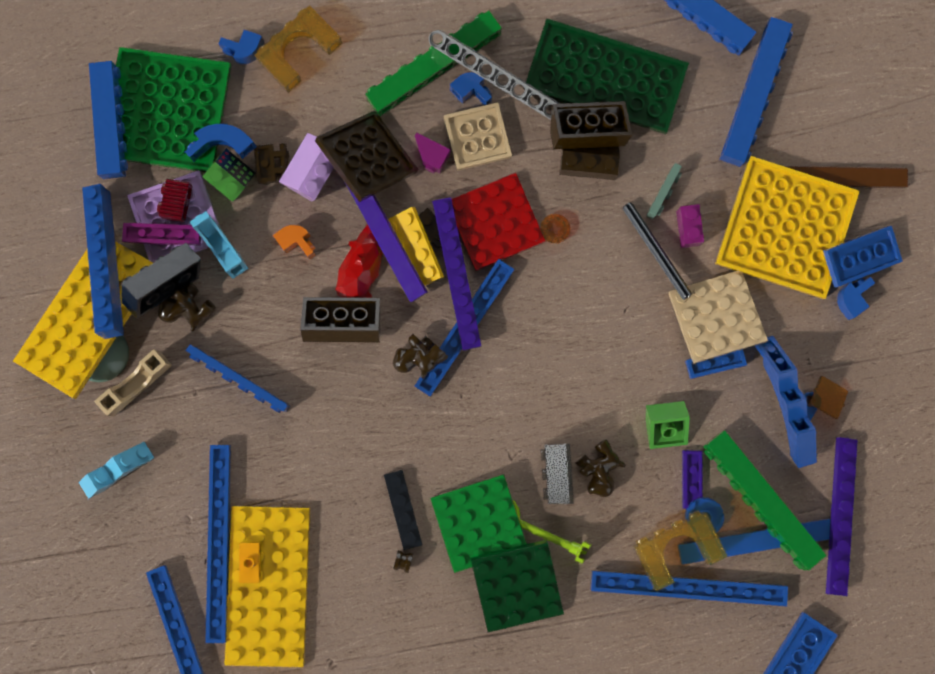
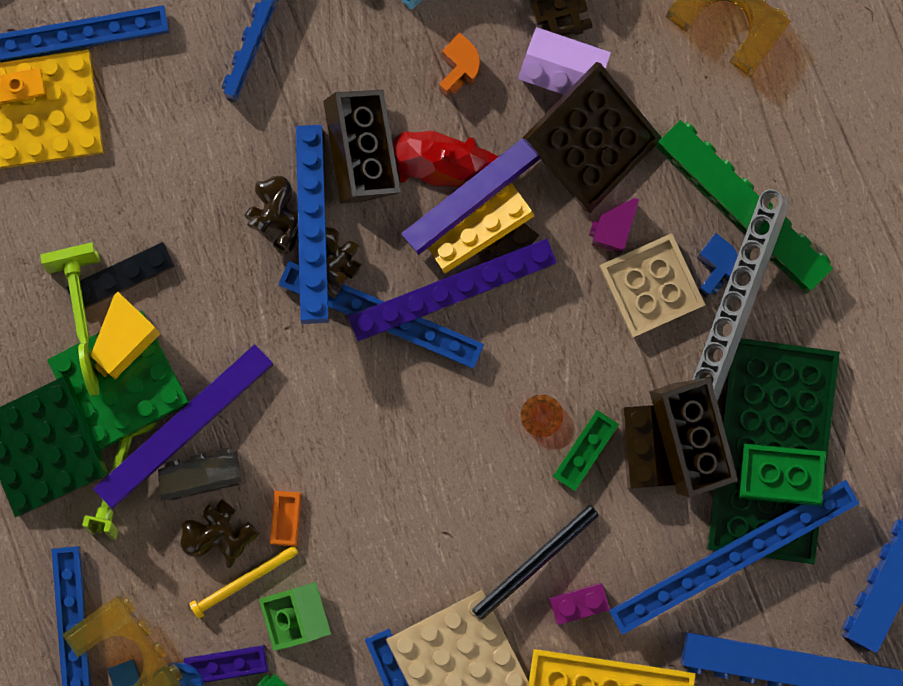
camera: 80 degrees right, 0 degrees up
(365, 387) = (275, 195): none -> dark brown animal
(386, 544) = (70, 261): none -> lime piece
(393, 363) = (311, 225): none -> blue plate
(403, 561) = (51, 288): dark brown wheel -> none
(449, 513) = (121, 337): none -> yellow slope
(496, 221) = (537, 332): red plate -> none
(520, 481) = (183, 427): none -> dark purple tile
(584, 203) = (585, 450): none -> green plate
(596, 420) = (285, 518): none -> orange tile
(626, 70) = (782, 475): none -> green tile
(636, 458) = (199, 607): none -> yellow bar
(665, 191) = (622, 560): sand green plate -> none
(676, 115) = (731, 558): none -> blue plate

